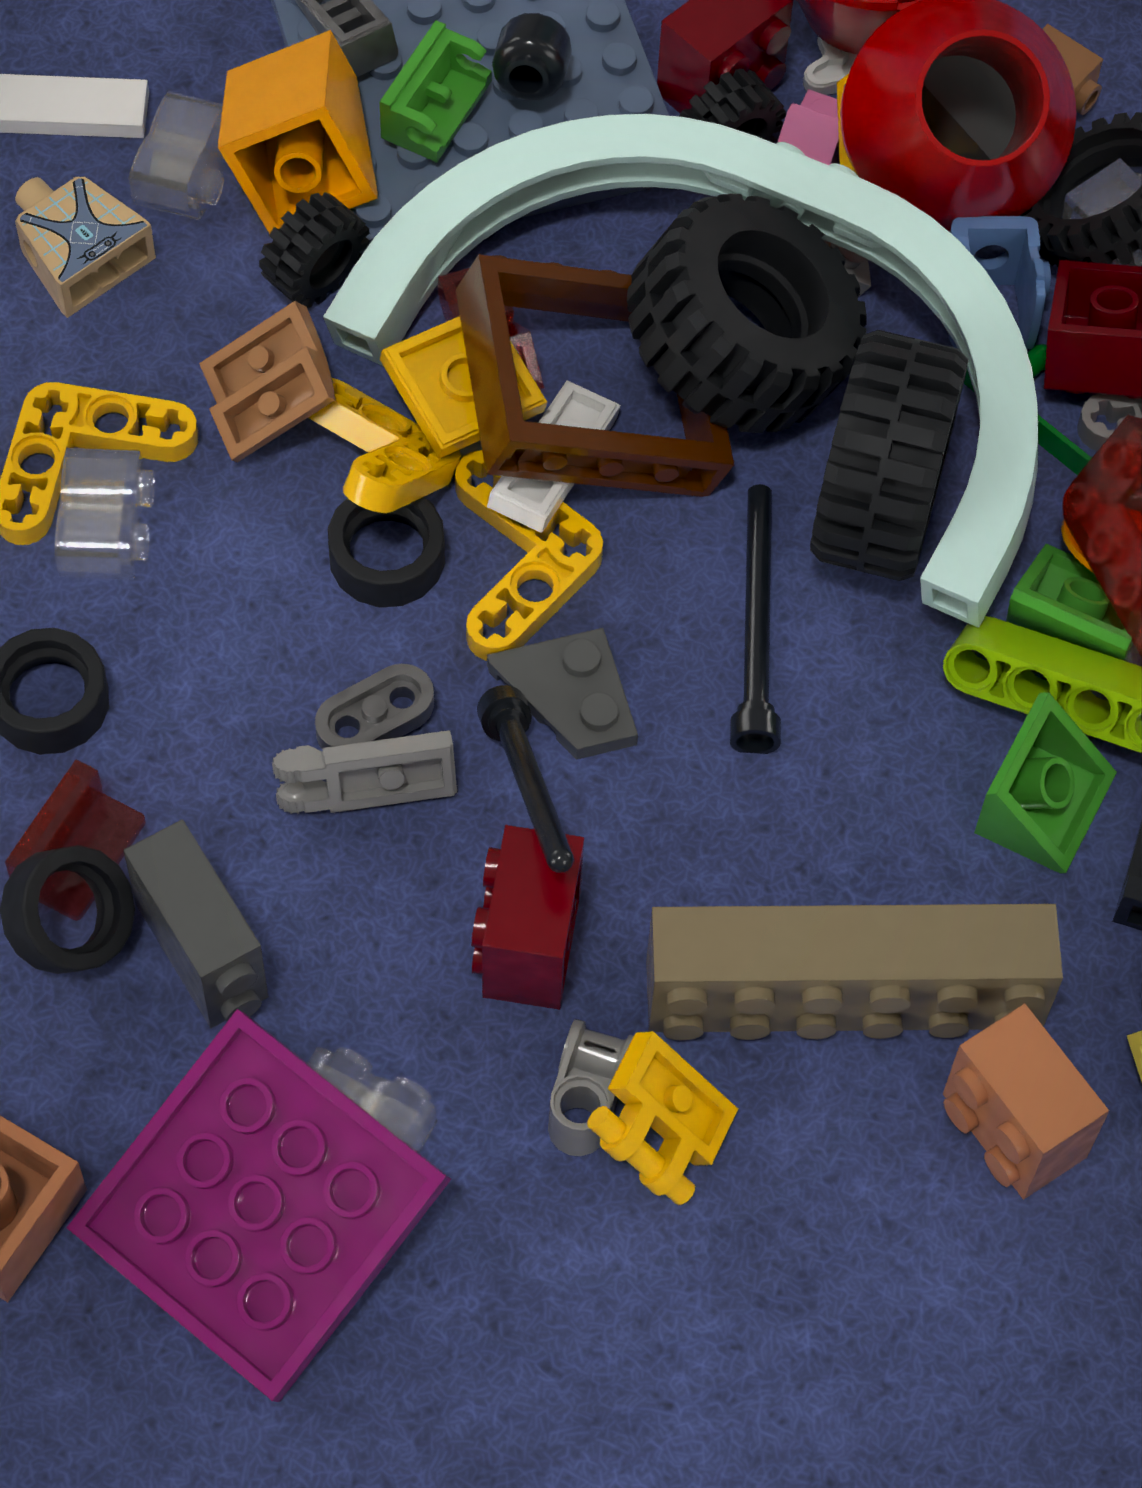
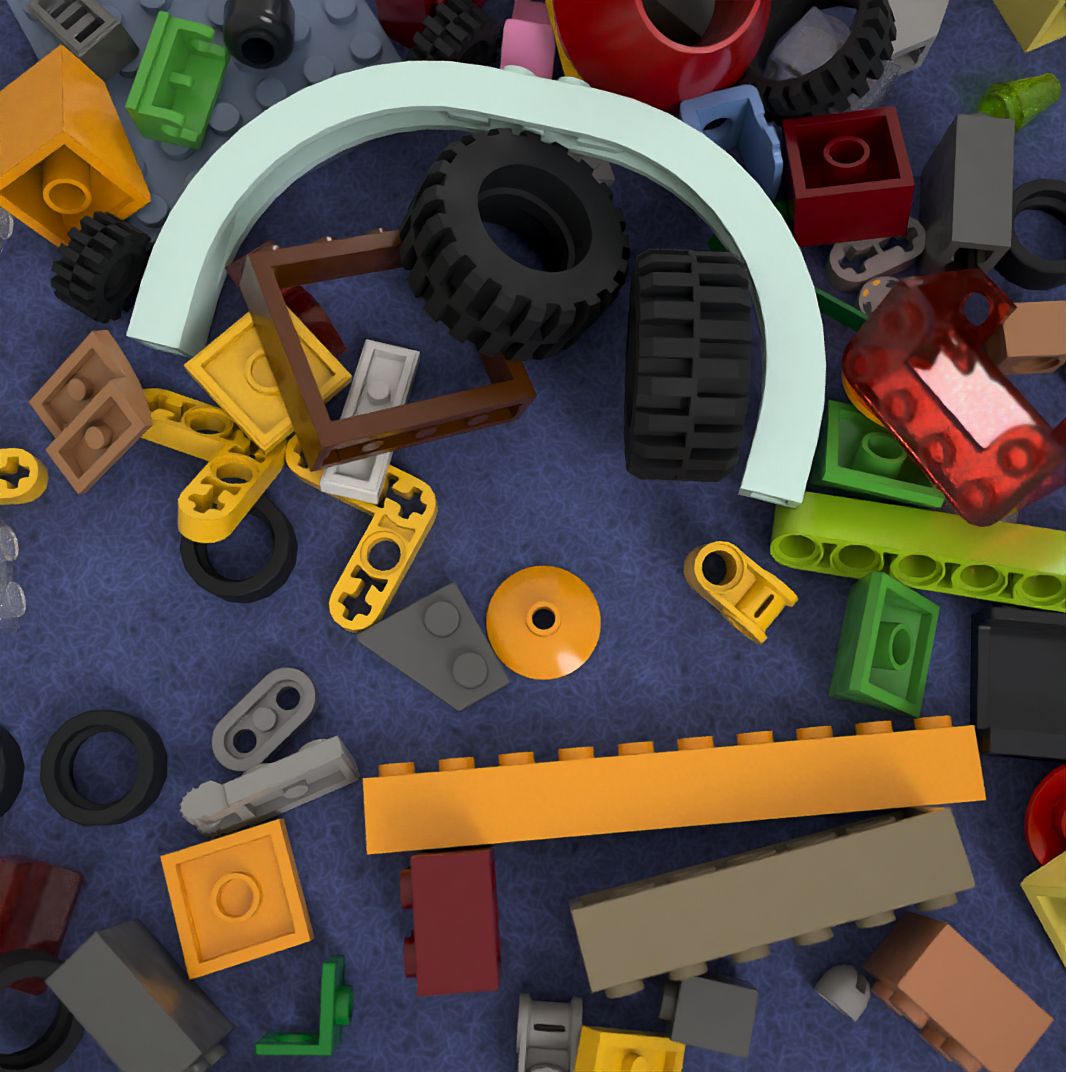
camera: 10 degrees left, 15 degrees up
(191, 675) = (61, 750): none -> black tyre
(305, 868) = (237, 898): none -> light orange plate
(360, 1015) = (335, 1012): none -> green bracket
(506, 719) = (387, 699): black piece -> none
(679, 715) = (536, 651): none -> light orange dish
(755, 724) = (612, 640): black piece -> none
(760, 860) = (671, 788): none -> light orange brick
(767, 1070) = (709, 1012): none -> dark grey brick
(910, 706) = (746, 596): none -> yellow piece
(913, 1101) = (844, 990): none -> light grey hinge

